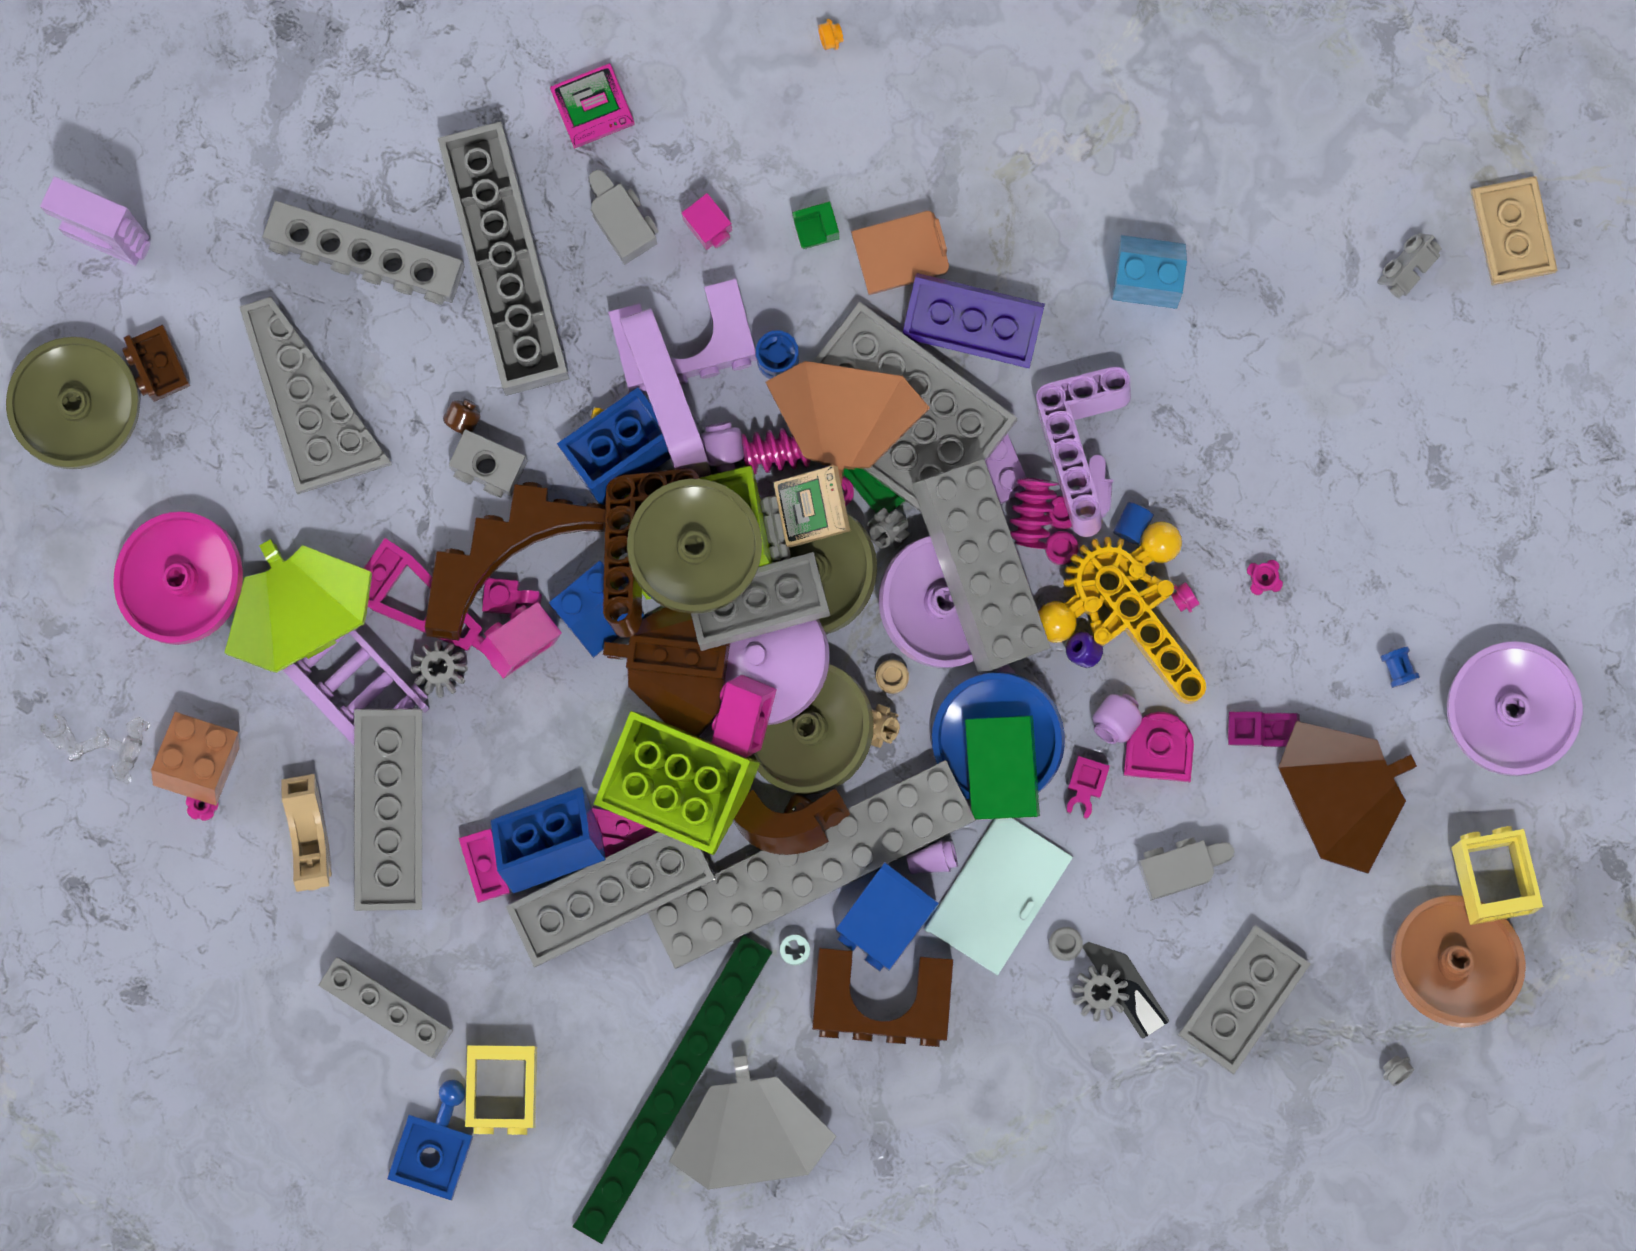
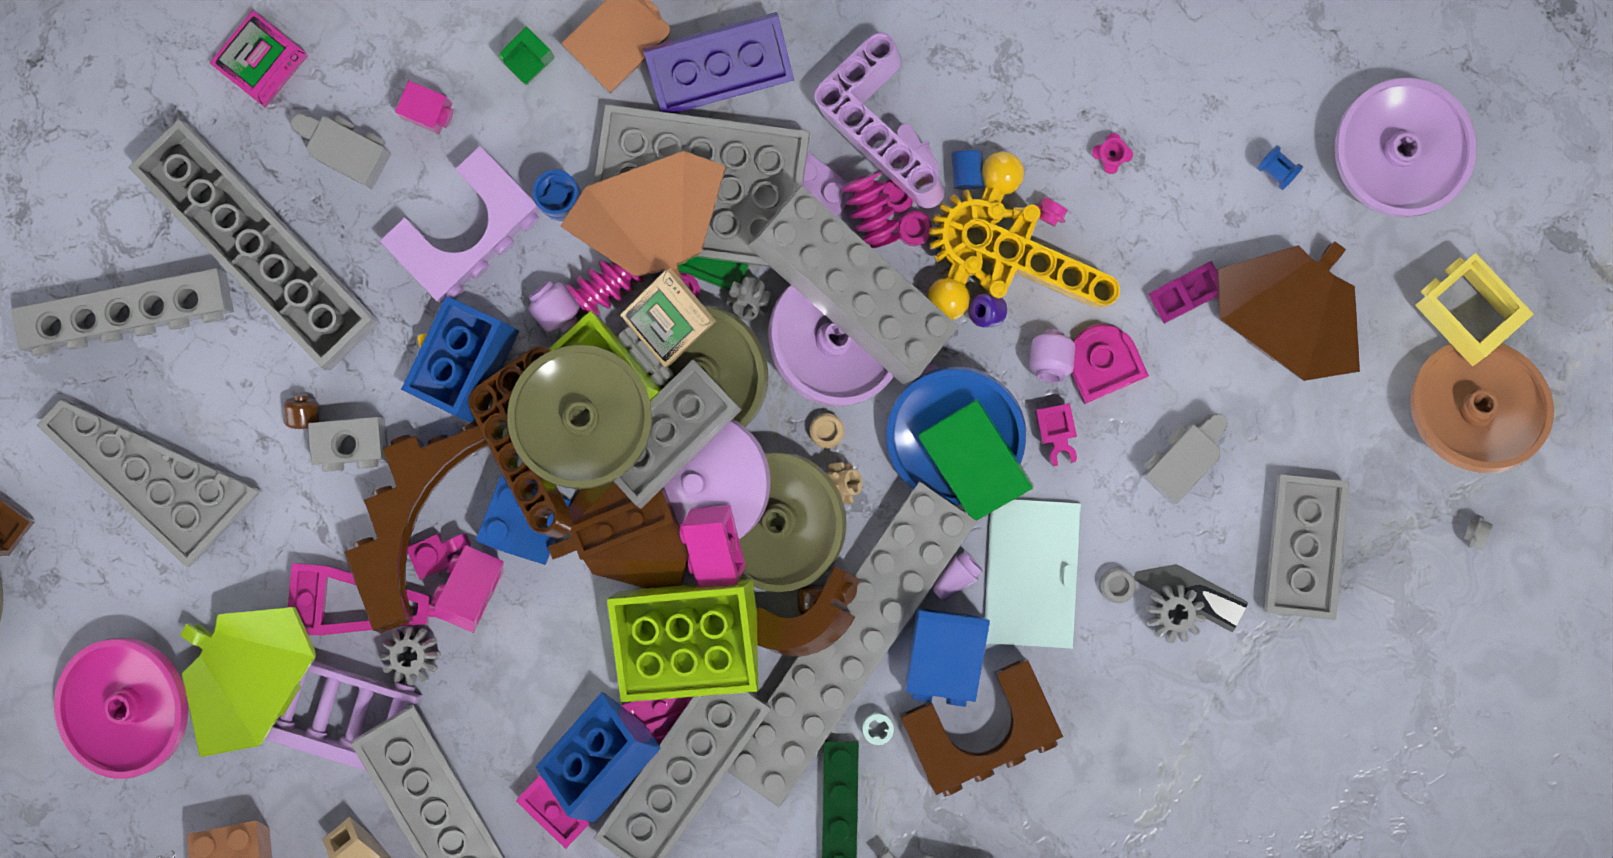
camera: 35 degrees left, 5 degrees up
(665, 393) = (473, 288): lavender beam -> none

